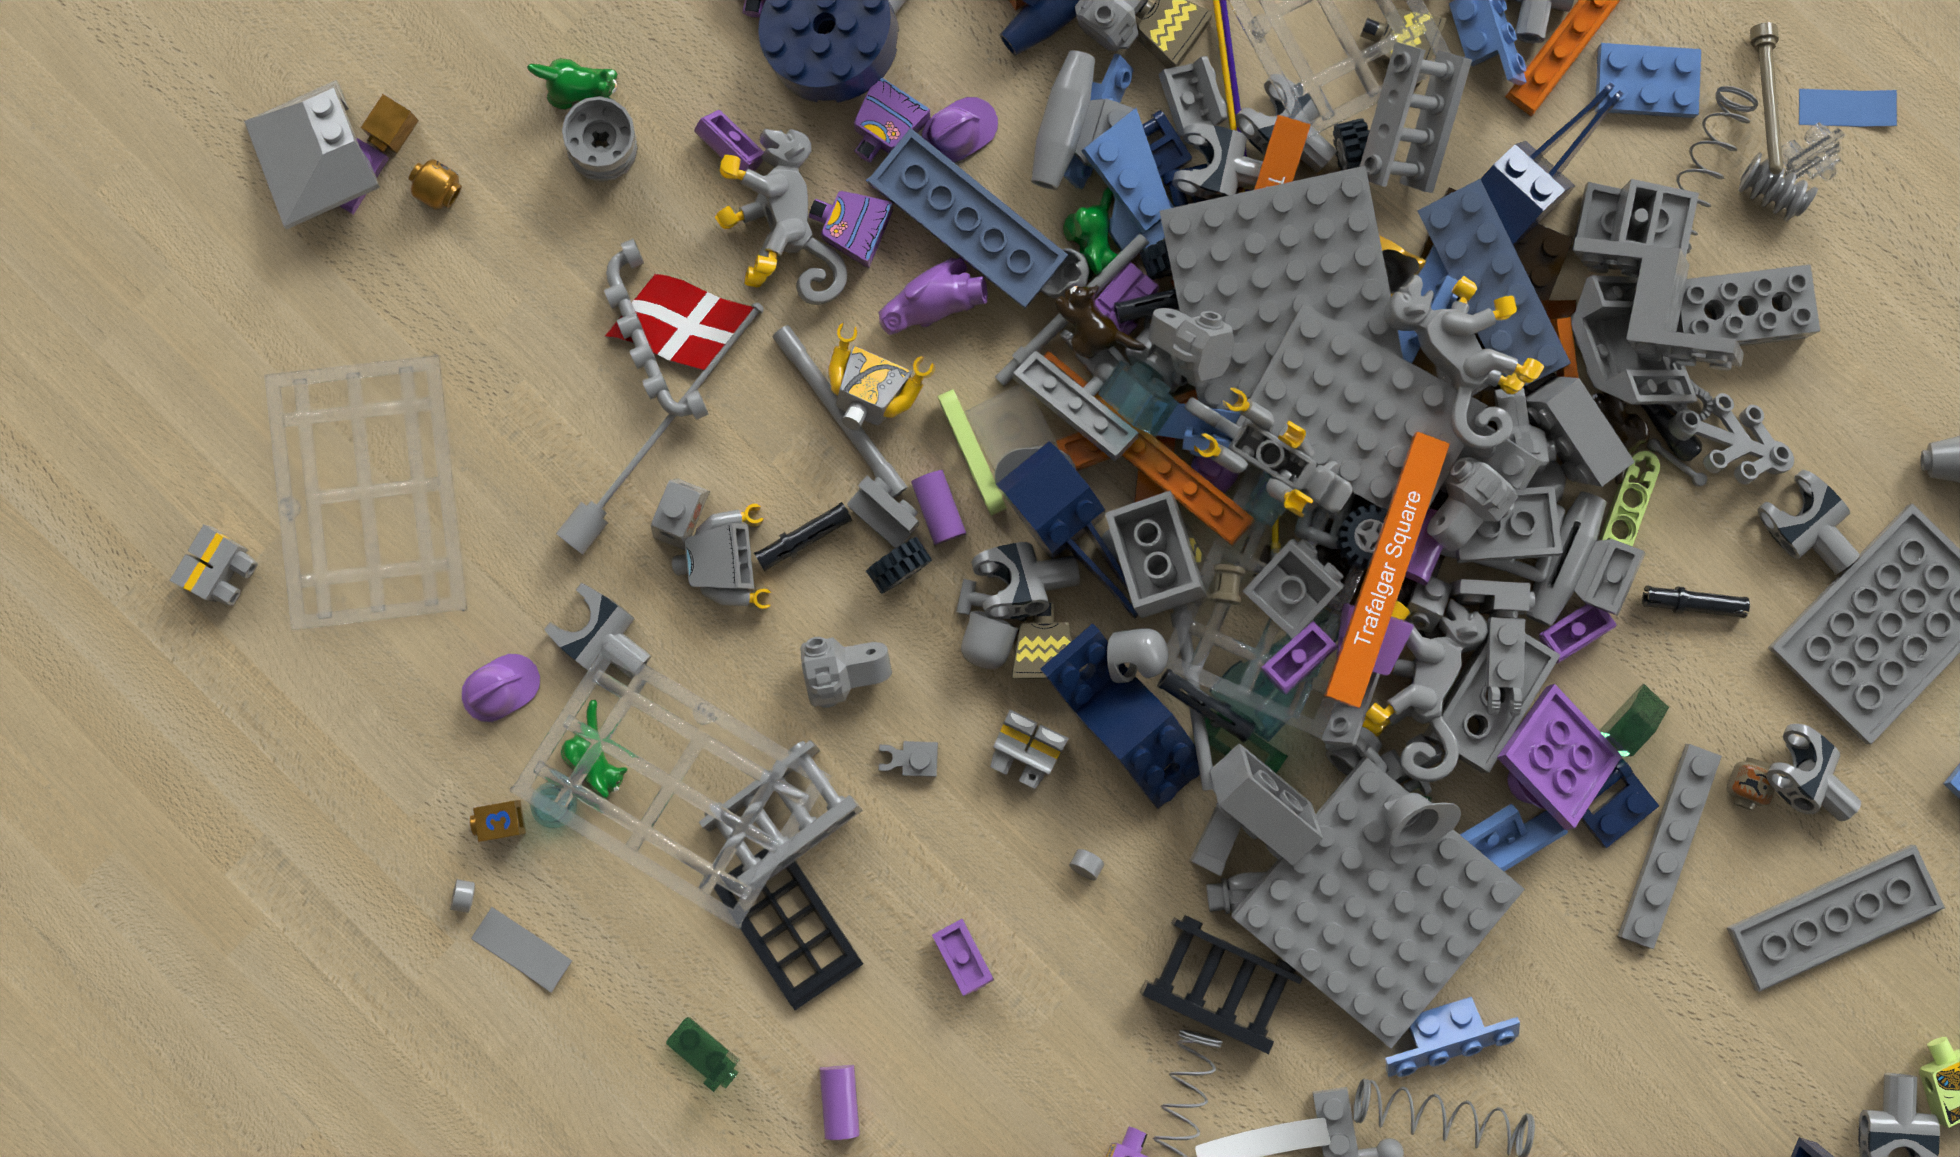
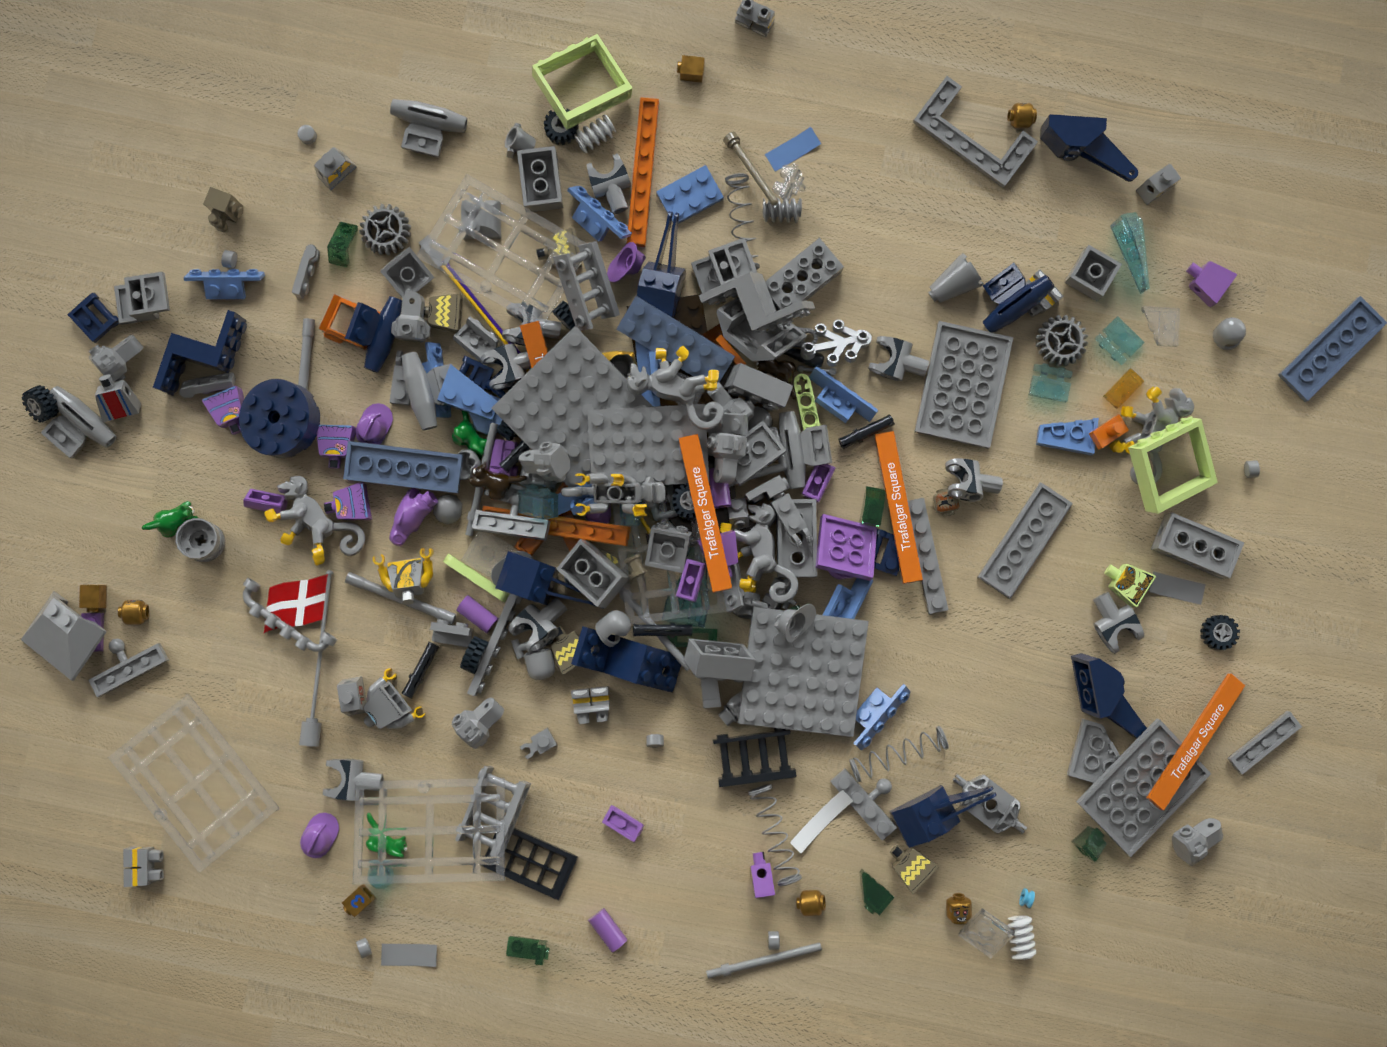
camera: 30 degrees left, 0 degrees up
(374, 262) = (127, 668): none -> light grey plate
(931, 572) = (493, 649): none -> light grey plate
(992, 323) = (448, 509): none -> light grey hair
(1030, 103) = (398, 390): none -> light grey hinge
(1491, 121) = (626, 262): none -> medium lavender piece
(1674, 747) = (898, 507): none -> orange tile
(1687, 526) = (839, 399): none -> medium blue bracket

